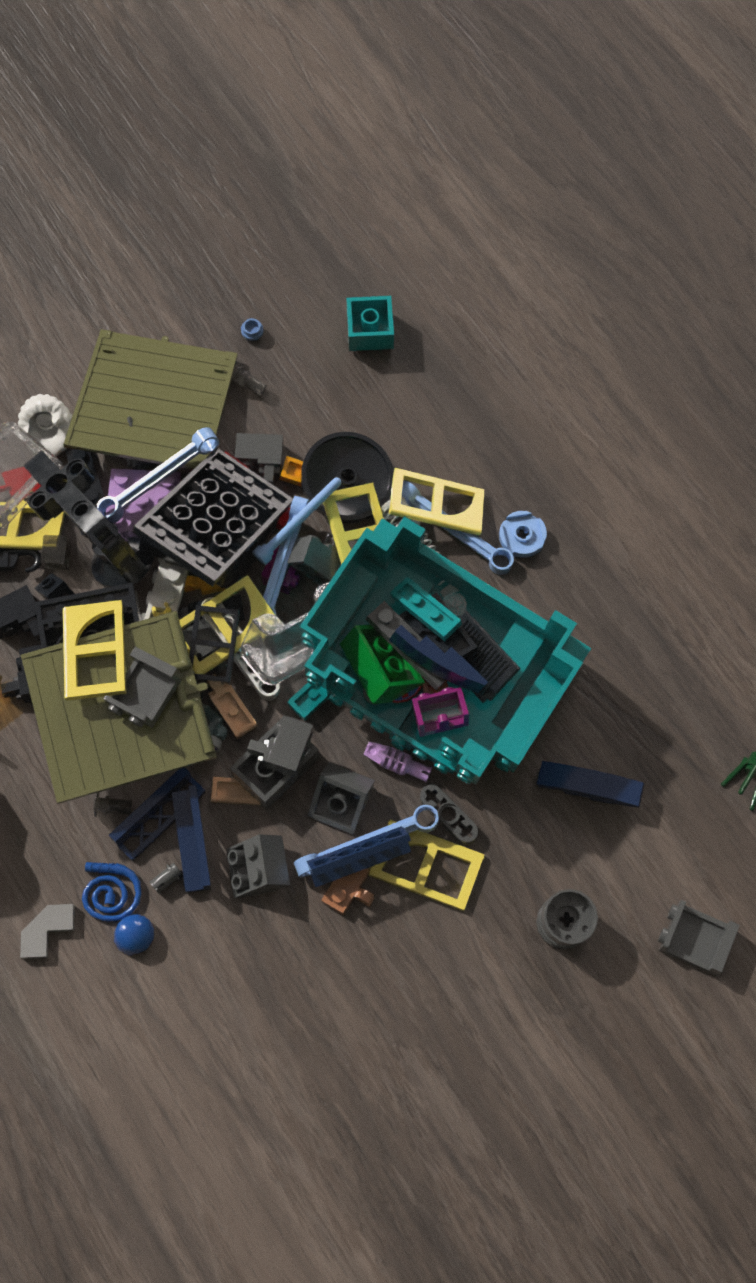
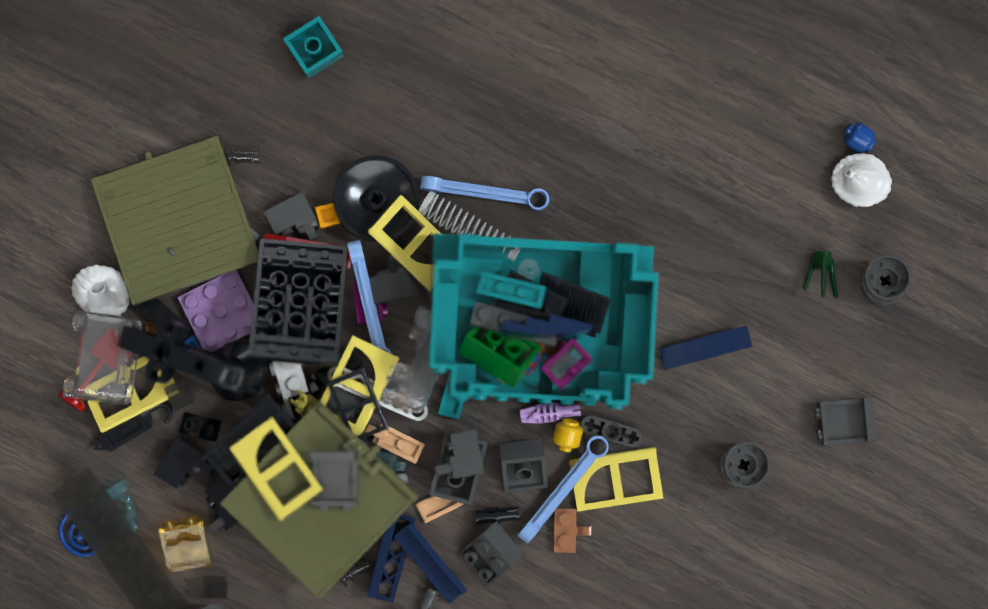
camera: 30 degrees left, 15 degrees up
(203, 443) = (247, 243): light blue piece -> none
(252, 329) = (215, 105): medium blue plate -> none
(264, 552) = (352, 305): light blue piece -> none
(287, 832) = (497, 515): none -> black pin
(359, 856) = (565, 505): dark blue fence -> none
(402, 792) = (567, 434): none -> yellow head
(467, 521) = (493, 184): light yellow window -> none
(529, 524) = (544, 155): light blue plate -> none

